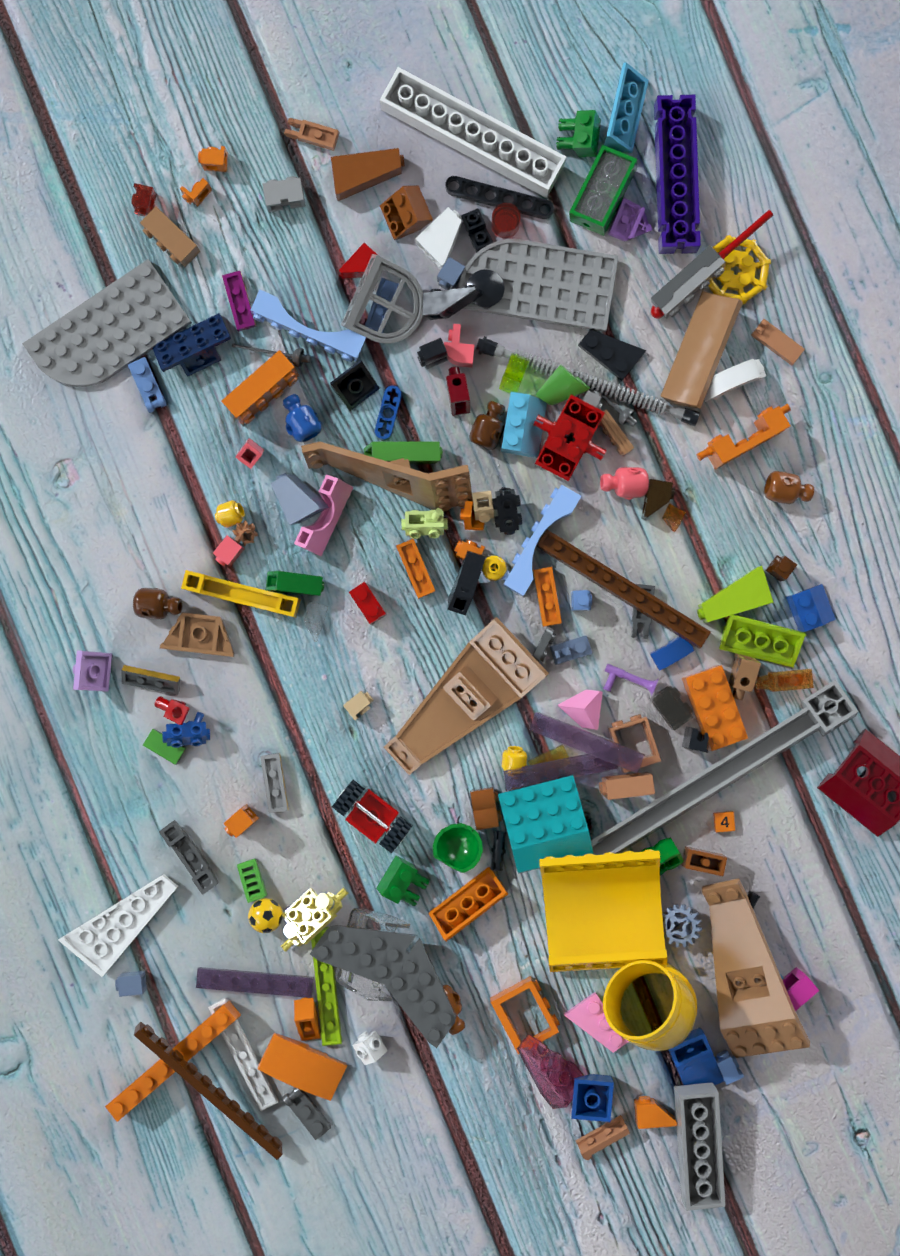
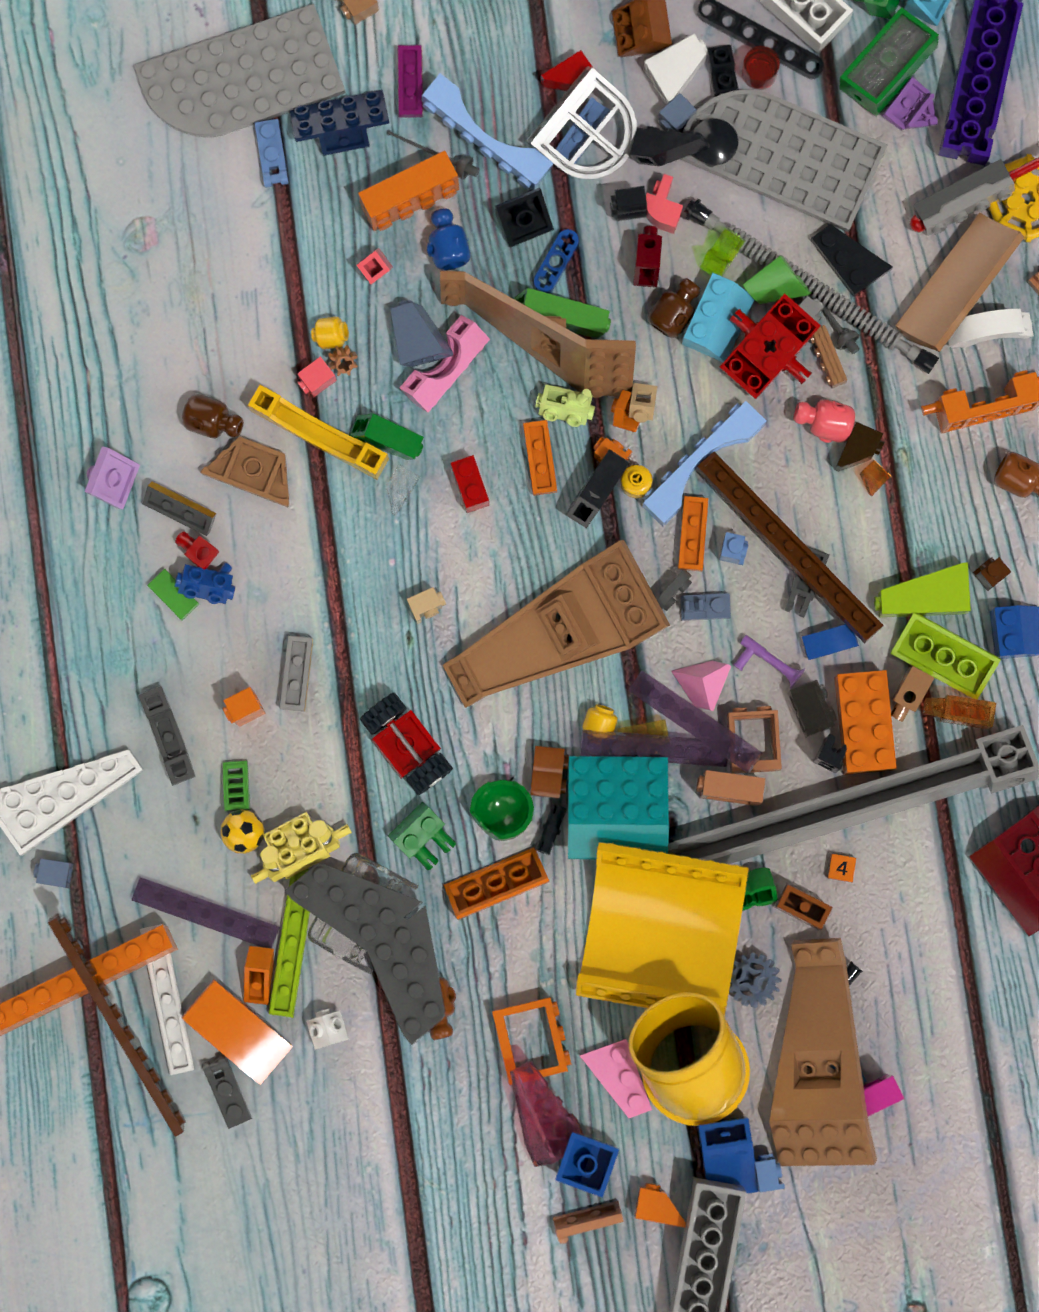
camera: 15 degrees right, 5 degrees down
(506, 505) = (671, 407): black brick -> none

